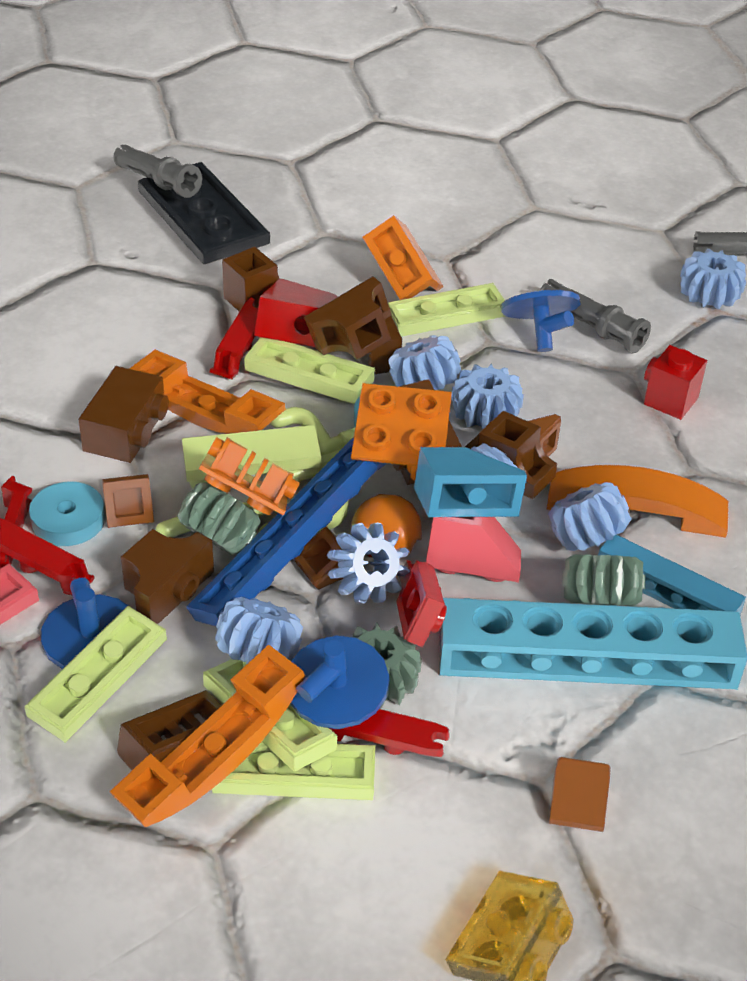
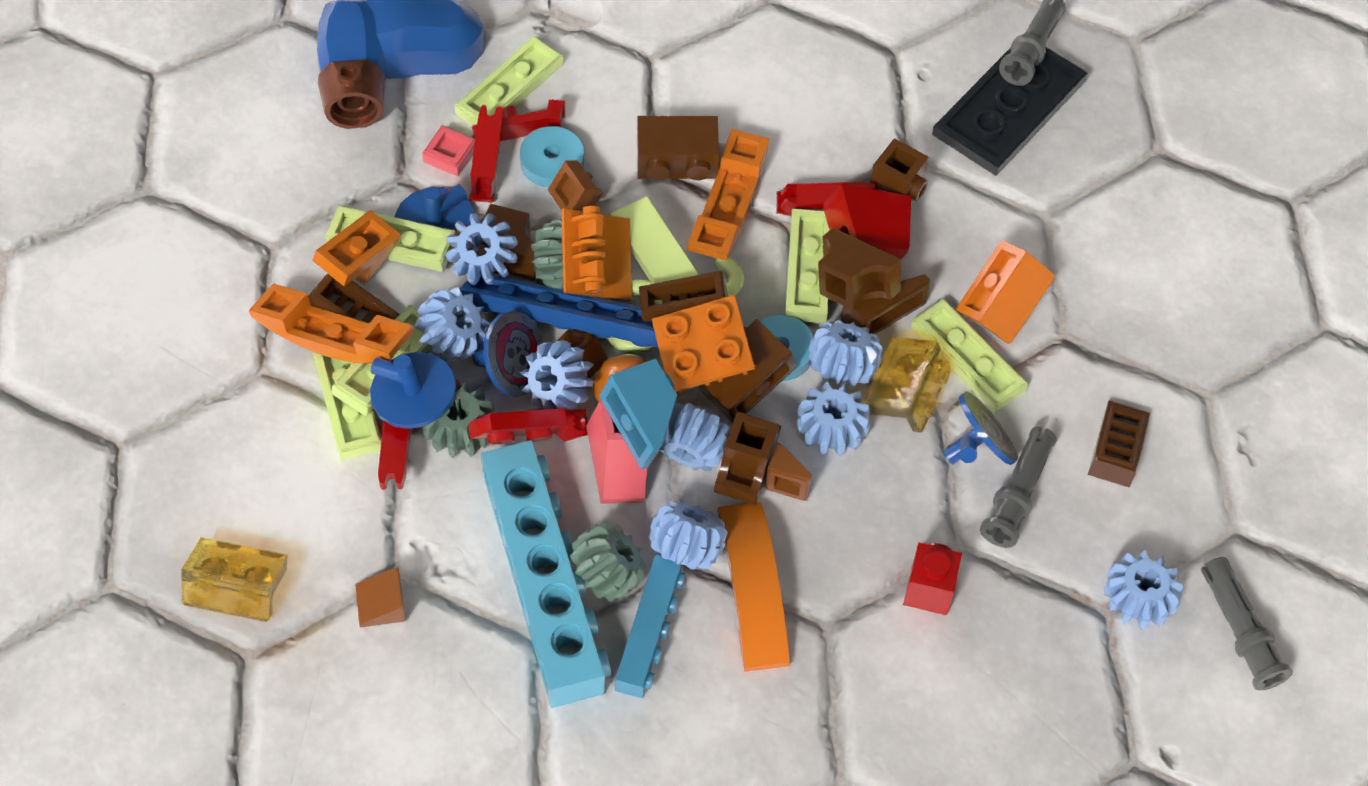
camera: 70 degrees right, 15 degrees up
(113, 690) = (357, 249): none -> orange slope
(189, 567) = (495, 237): none -> light blue gear
(308, 609) = (505, 346): none -> shield
(330, 409) = (688, 290): none -> reddish brown slope
(472, 341) = (909, 381): none -> clear yellow bracket
(570, 256) = (1112, 468): none -> reddish brown slope

